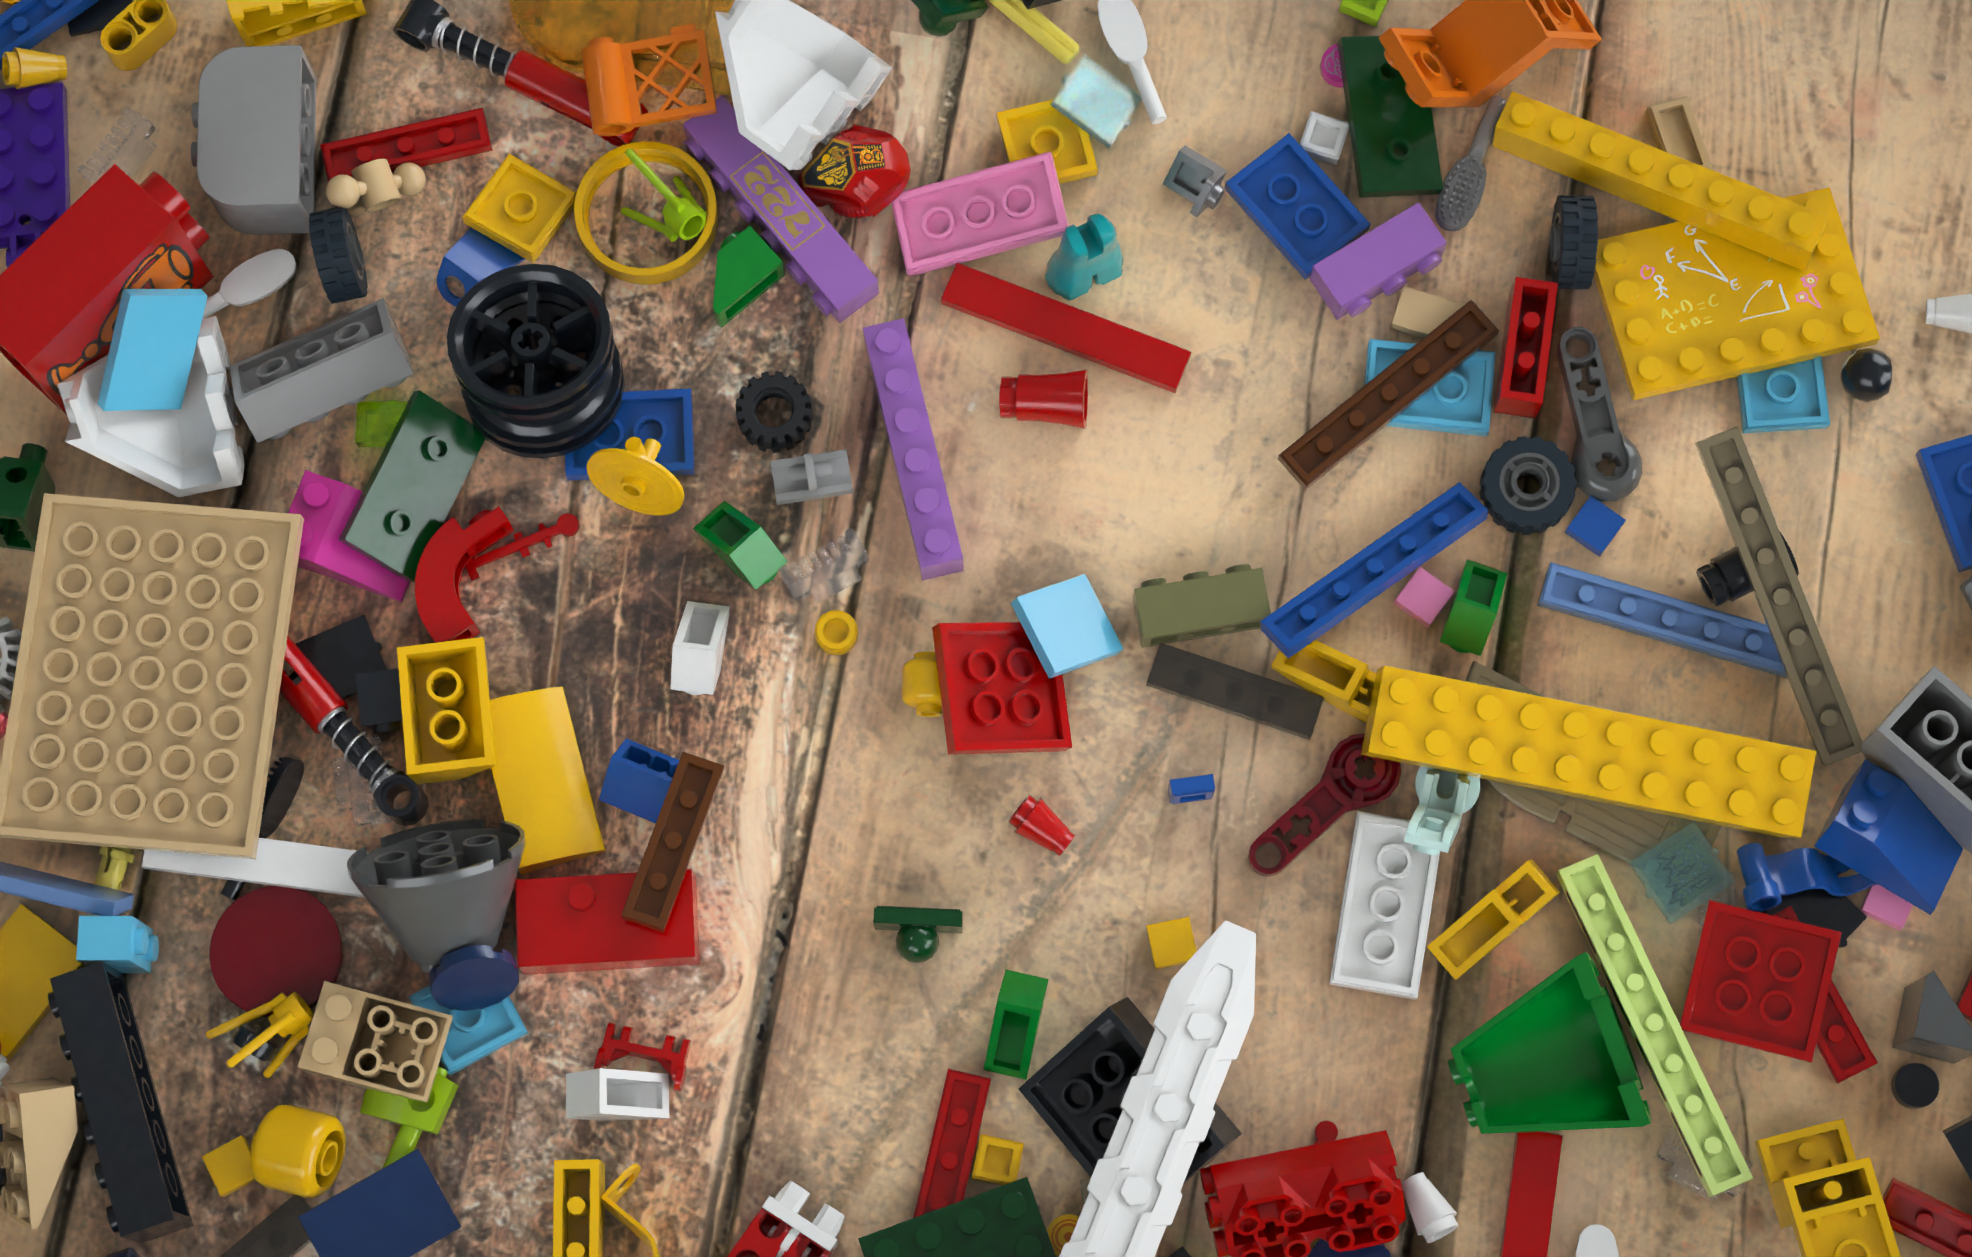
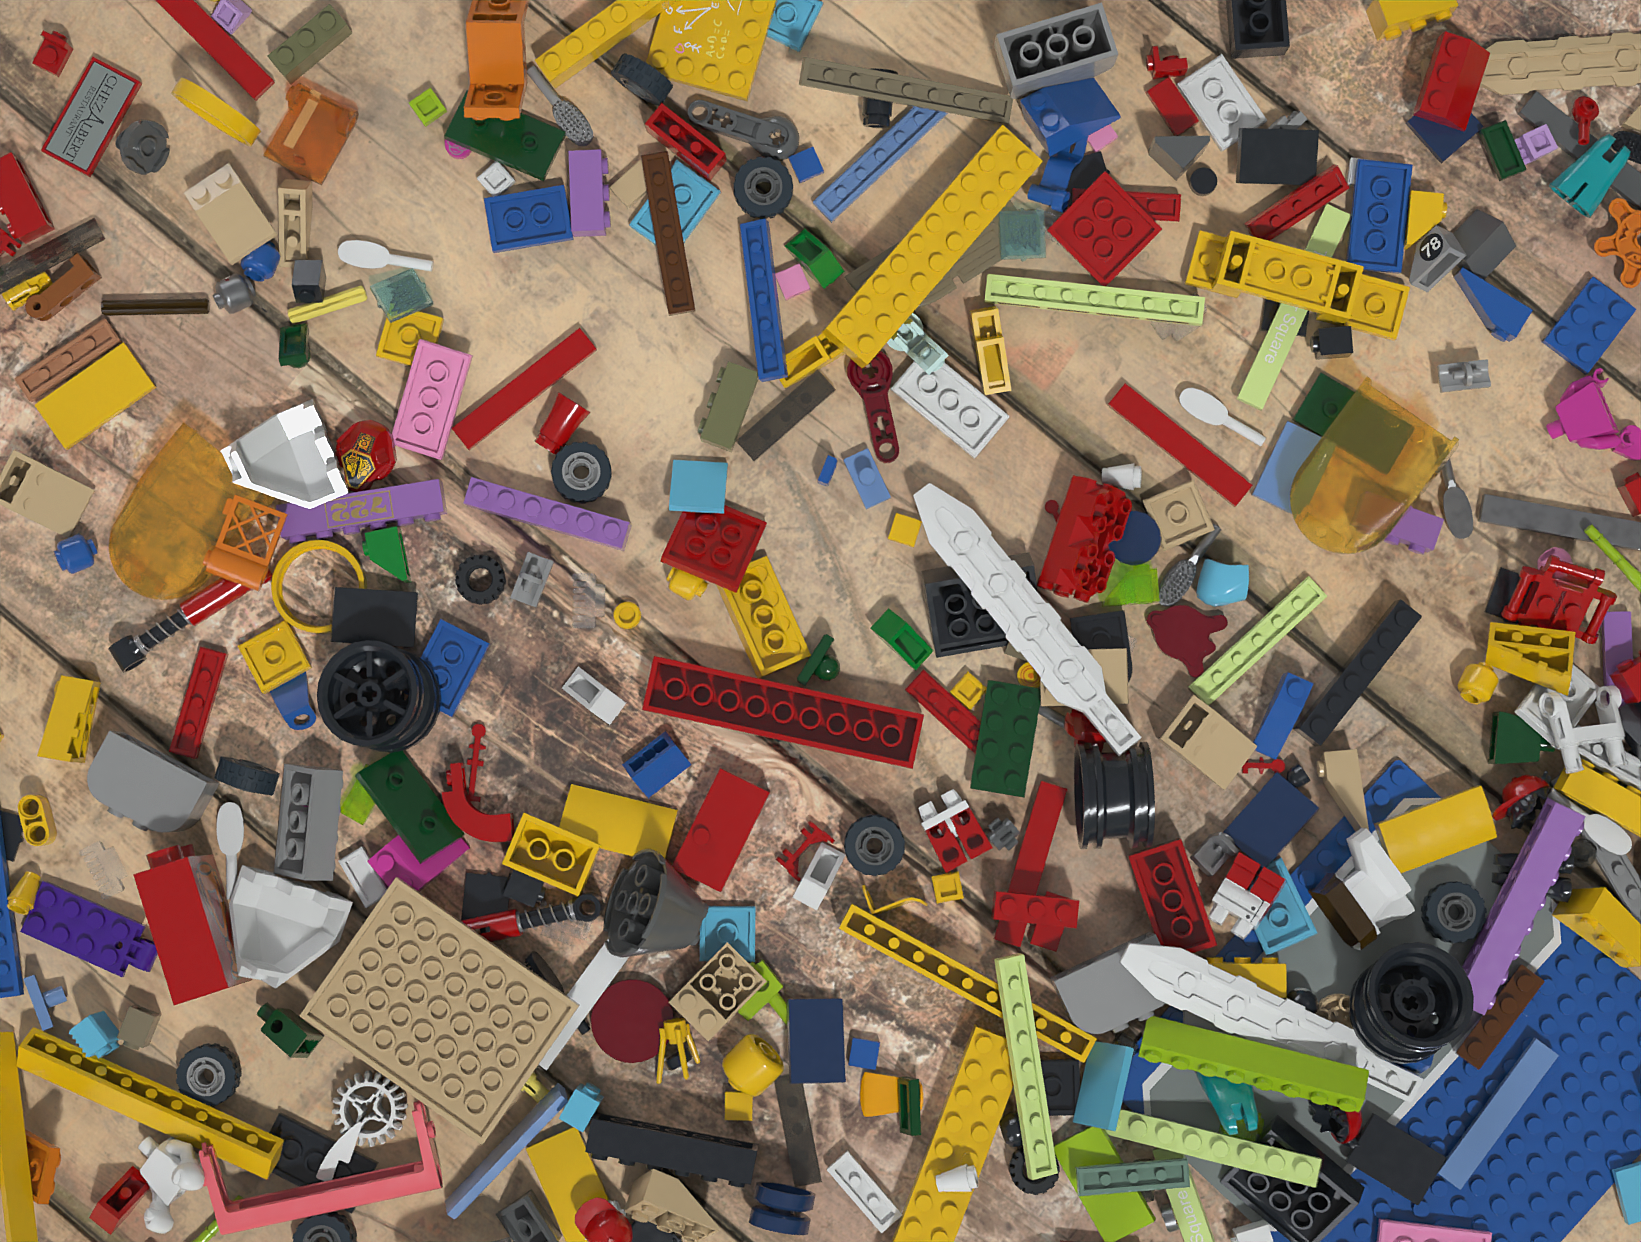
camera: 60 degrees left, 10 degrees up
(152, 349) = (247, 911): medium azure tile -> none
(284, 477) = (363, 877): none -> white tile
(374, 186) = (216, 732): tan piece -> none
(473, 978) = (713, 919): dark blue tile -> none
(635, 478) = (478, 678): yellow shield -> none
(645, 301) = (374, 616): none -> black tile
(673, 842) = (700, 769): reddish brown plate -> none
(675, 1149) = (874, 862): none -> black wheel
(682, 216) = (336, 568): lime plant -> none
(741, 545) = (547, 640): green slope -> none
(819, 917) = (783, 712): none -> red brick
(935, 820) = (764, 620): none -> yellow slope
(995, 436) = (581, 489): none -> black wheel
(1041, 825) = (800, 564): red cone -> none
(1085, 253) = (492, 355): teal piece -> none
(1196, 180) = (481, 266): flat silver bracket -> none
(1213, 850) = (867, 478): none -> medium blue tile
(1552, 1061) = (1086, 365): green cone -> none

